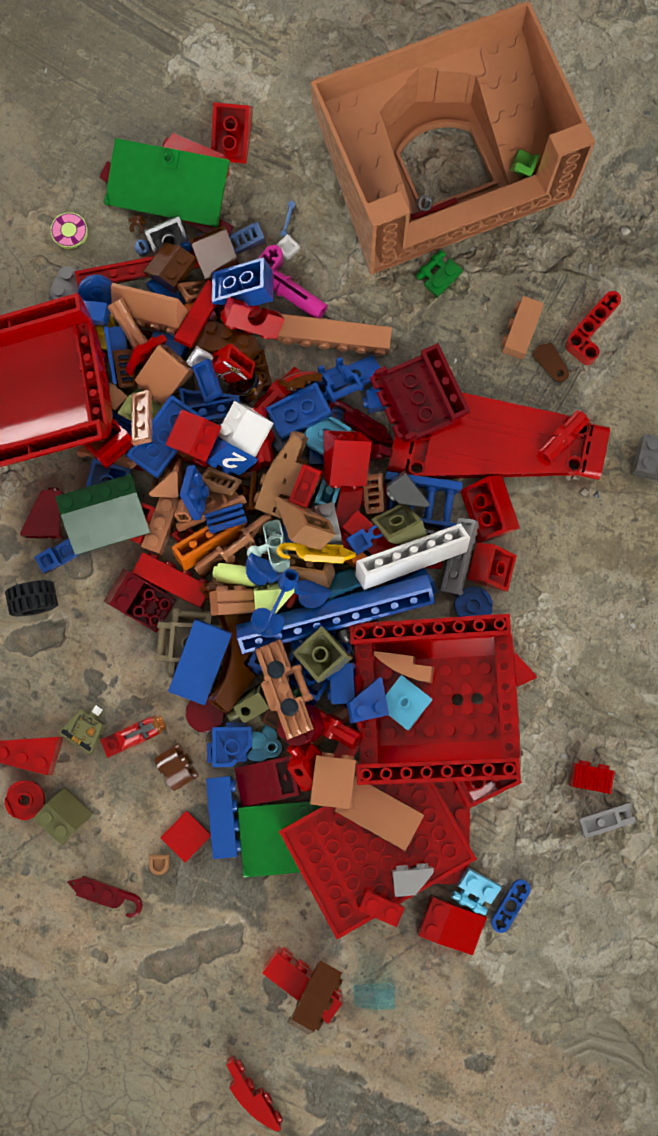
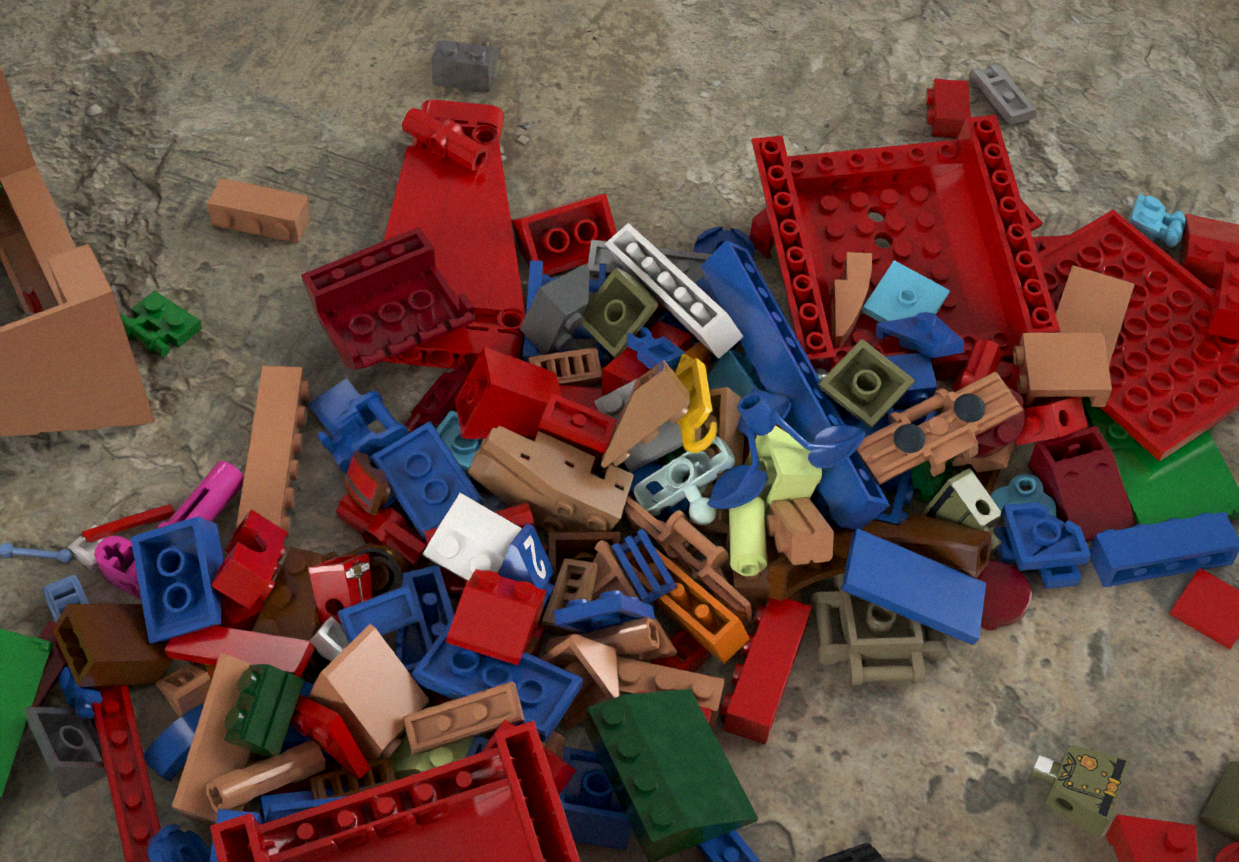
camera: 100 degrees left, 30 degrees down
(133, 735) = (1072, 700): red plate -> none
(138, 248) = (78, 802): medium blue hinge -> none
(139, 221) = (18, 813): reddish brown plate -> none
(139, 600) = (814, 724): dark red slope -> none
(153, 321) = (263, 709): none -> dark green brick
(170, 266) = (132, 719): reddish brown slope -> none
(176, 767) = (1107, 615): reddish brown brick -> none
(294, 253) = (108, 529): none -> red piece
(372, 401) = (394, 385): blue brick -> none
(410, 880) = (1176, 272): light grey slope -> none
(492, 566) = (662, 228): red slope -> none
(497, 915) = (1180, 188): blue beam -> none
(551, 361) = (317, 178): reddish brown piece -> none
(594, 323) = (274, 144): red beam -> none

